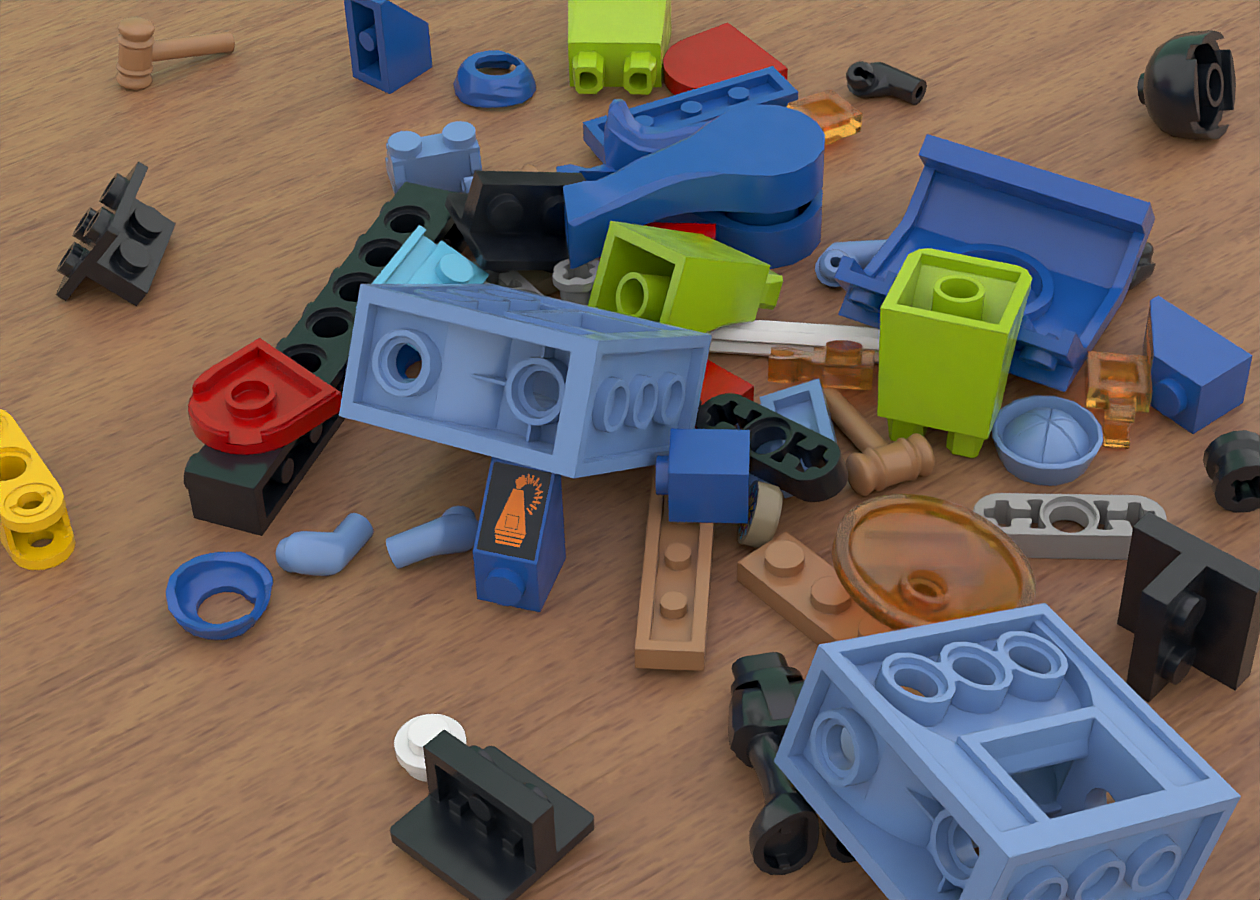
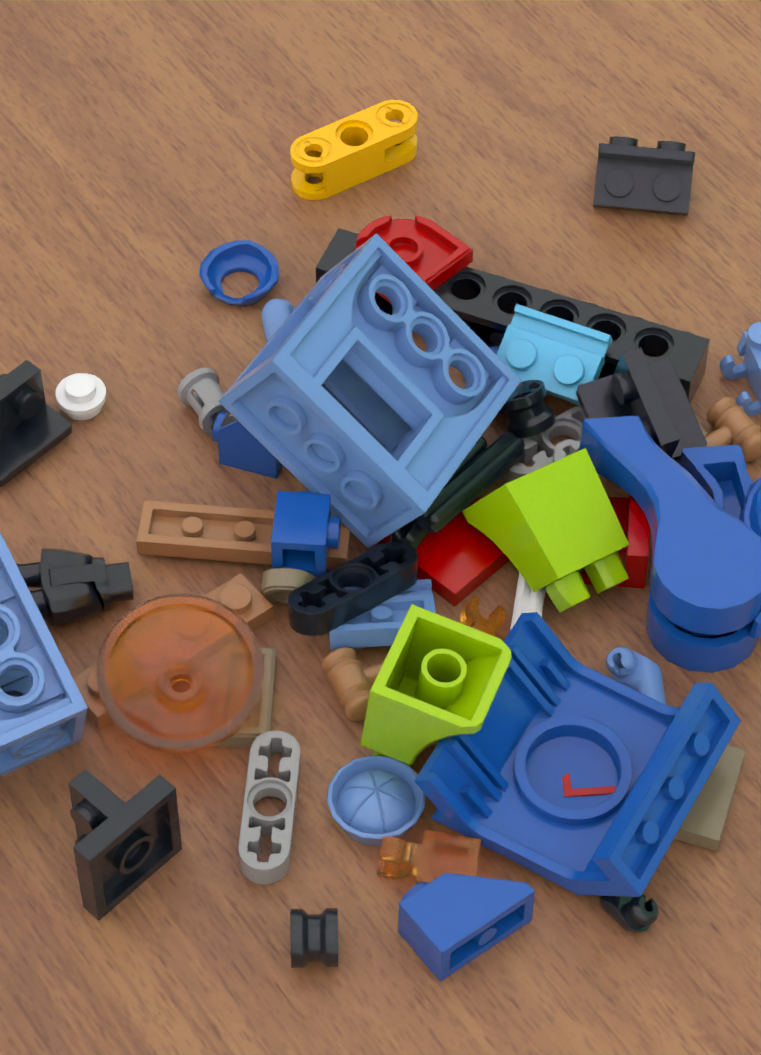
camera: 90 degrees right, 10 degrees up
(477, 599) = (205, 398): none -> light grey bush

